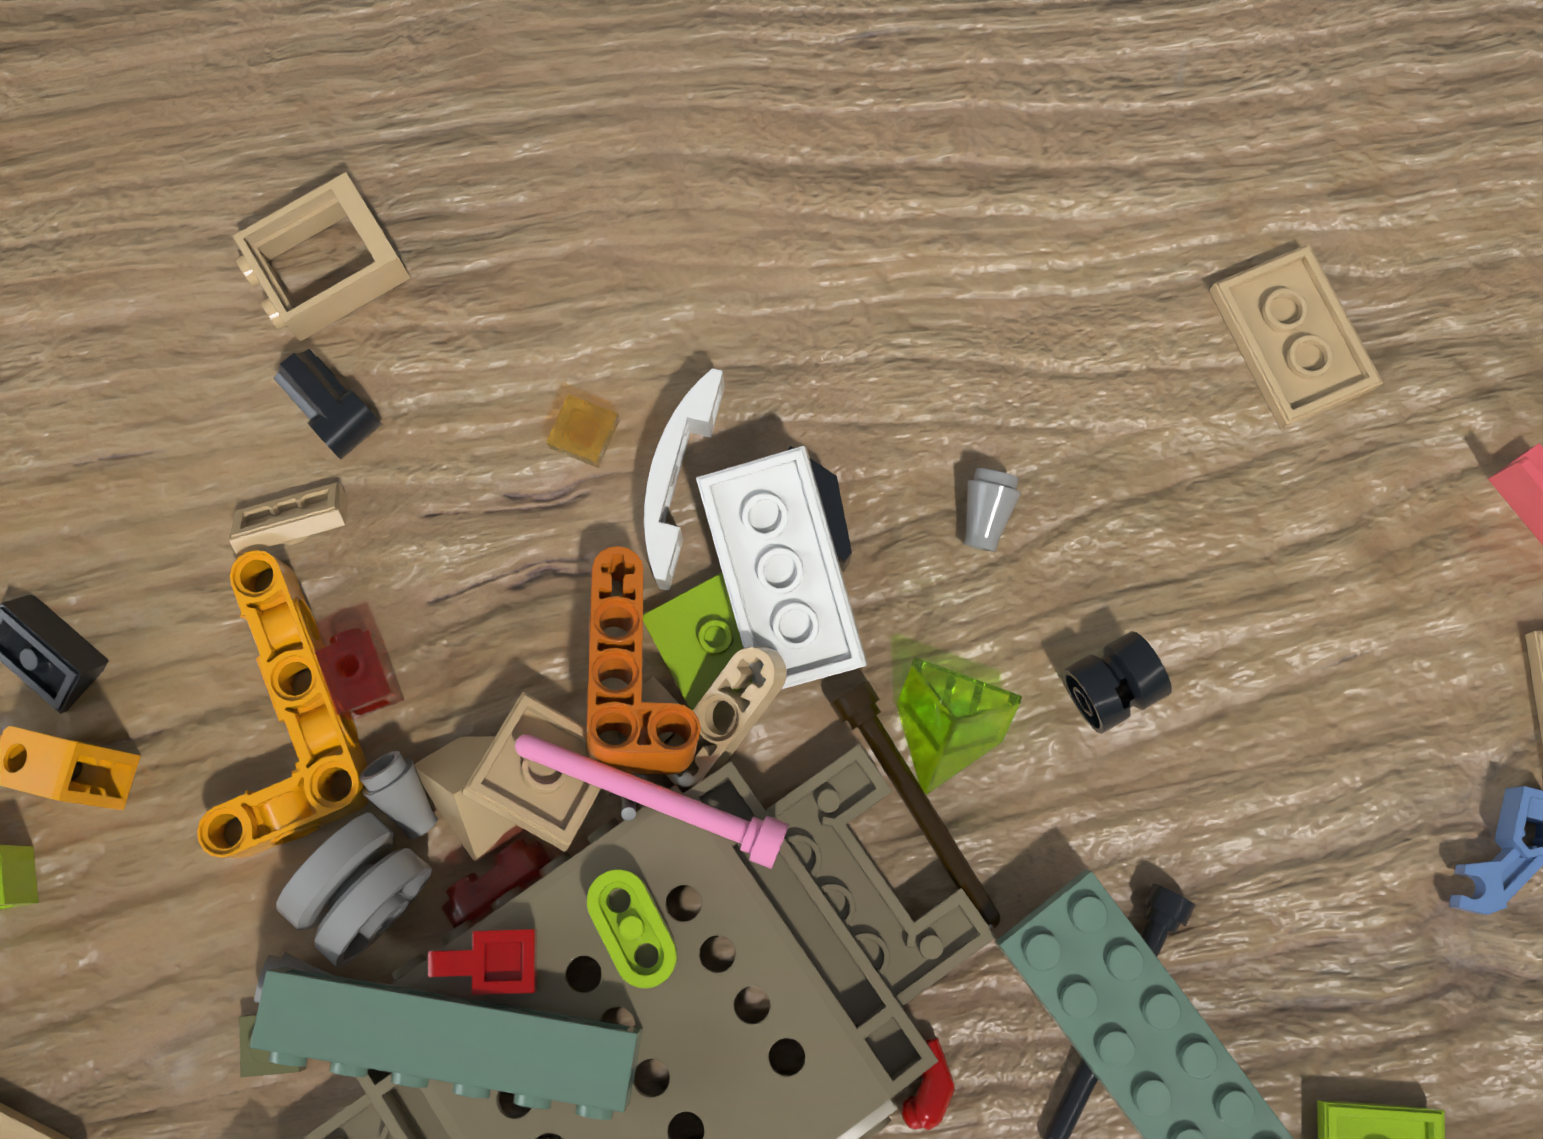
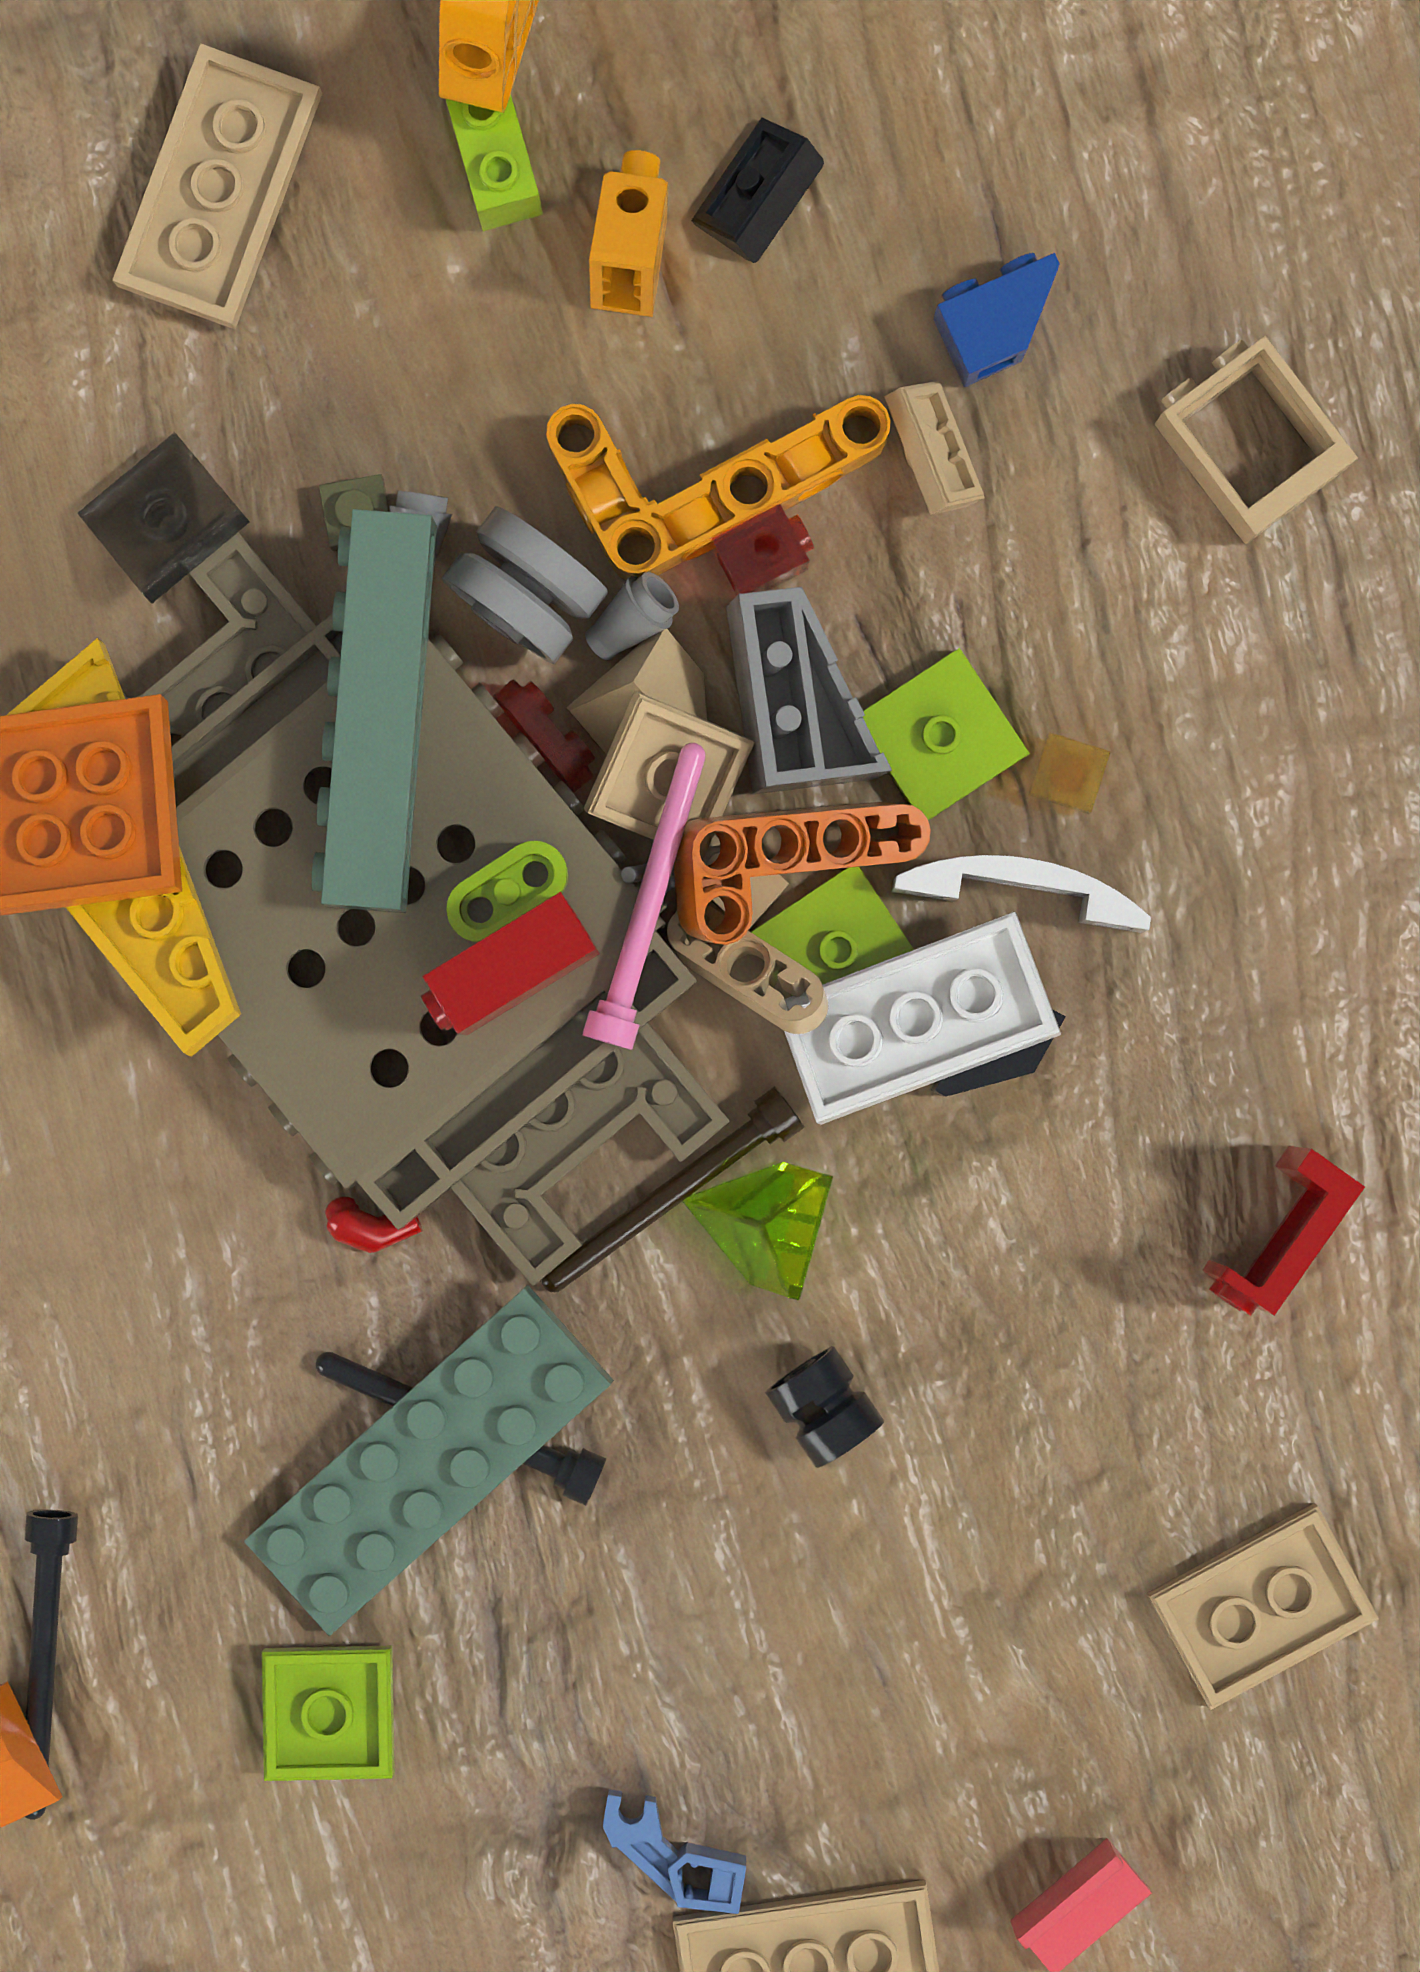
camera: 85 degrees right, 10 degrees up
(188, 460) = (994, 322): none -> blue slope
(333, 411) = (1066, 482): black piece -> none
(487, 653) = (795, 697): none -> light grey wedge
(498, 962) = (461, 753): red plate -> none
(538, 536) = (943, 735): none -> lime plate
(700, 932) = (508, 966): none -> red brick
(989, 507) = (1019, 1253): light grey cone -> none
(992, 273) = (1297, 1239): none -> red panel

